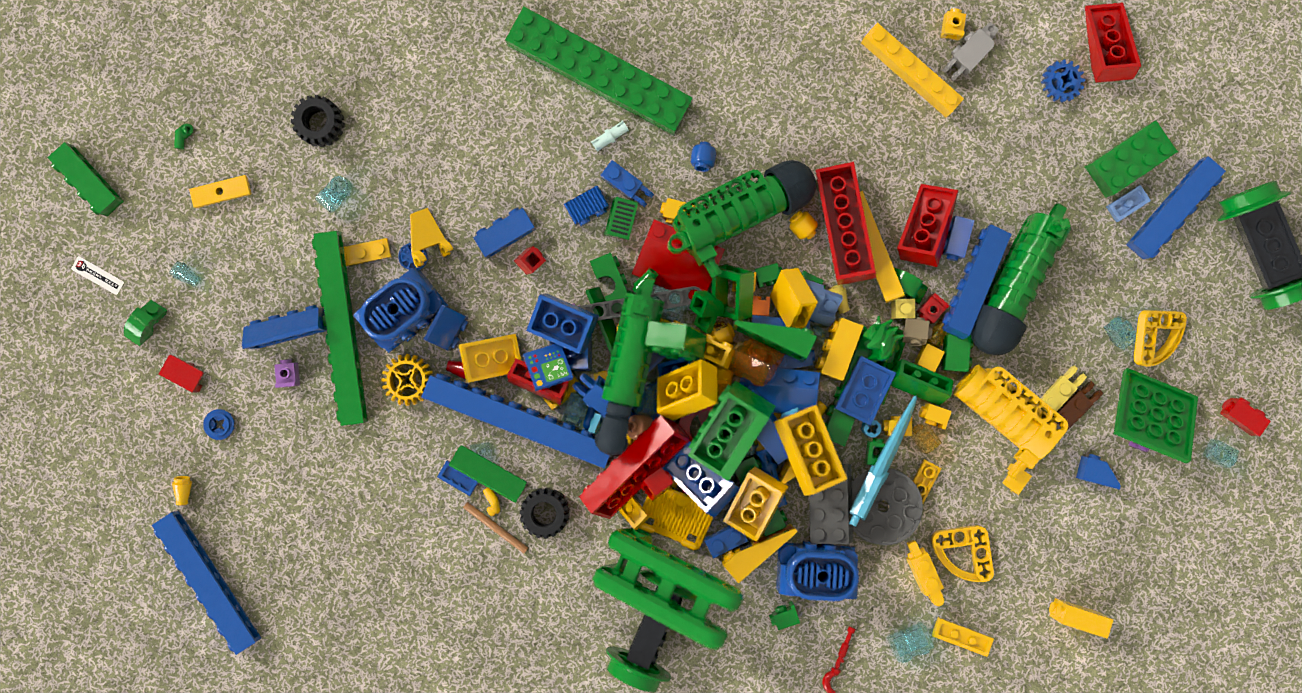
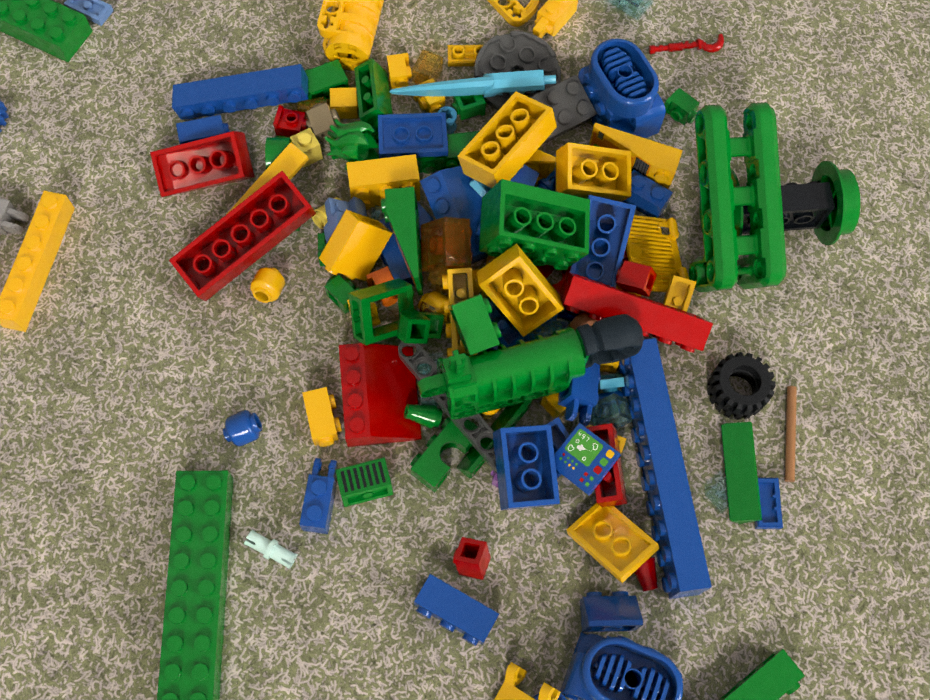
camera: 120 degrees left, 20 degrees down
(397, 393) = (698, 639): yellow gear -> none
(493, 500) = (765, 449): yellow arm -> none
(586, 206) = (370, 528): blue brick -> none
(781, 189) = (250, 329): green piece -> none
(1015, 284) = (211, 53): green piece -> none

